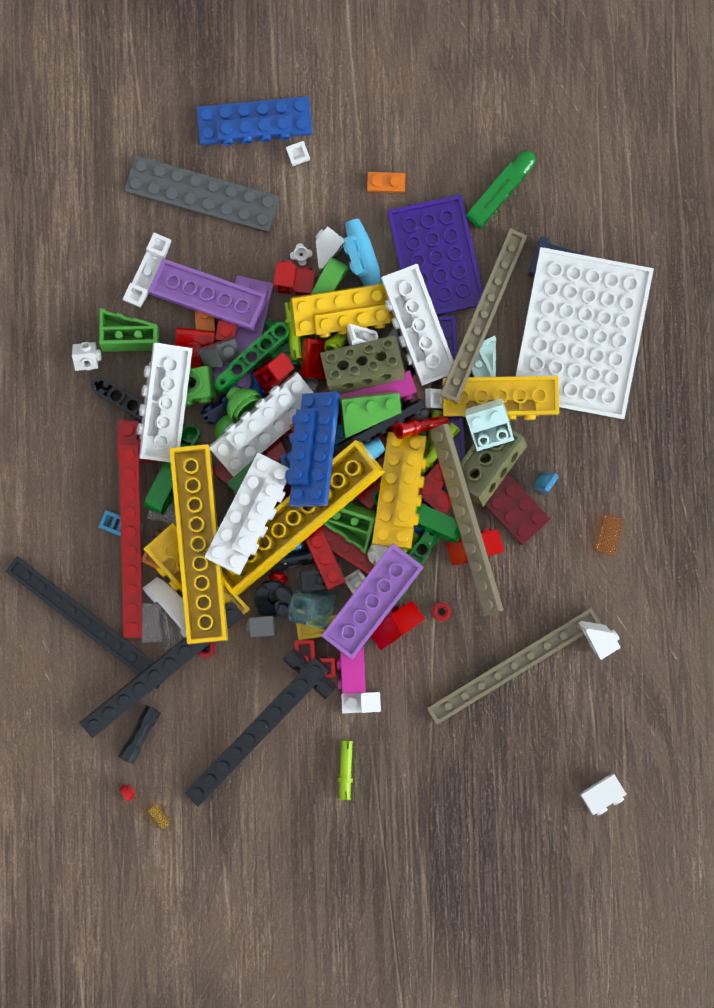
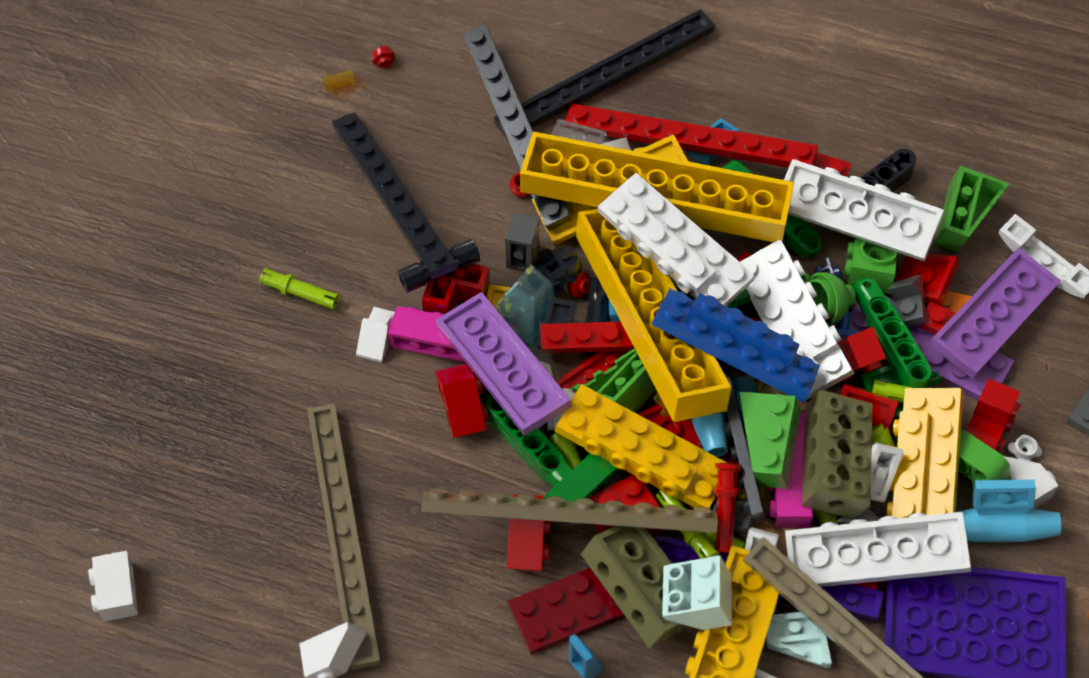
camera: 110 degrees right, 25 degrees down
(86, 356) = (947, 156): white brick -> none
(142, 729) = (459, 99): black axle -> none
(446, 607) = (453, 460): red plate -> none

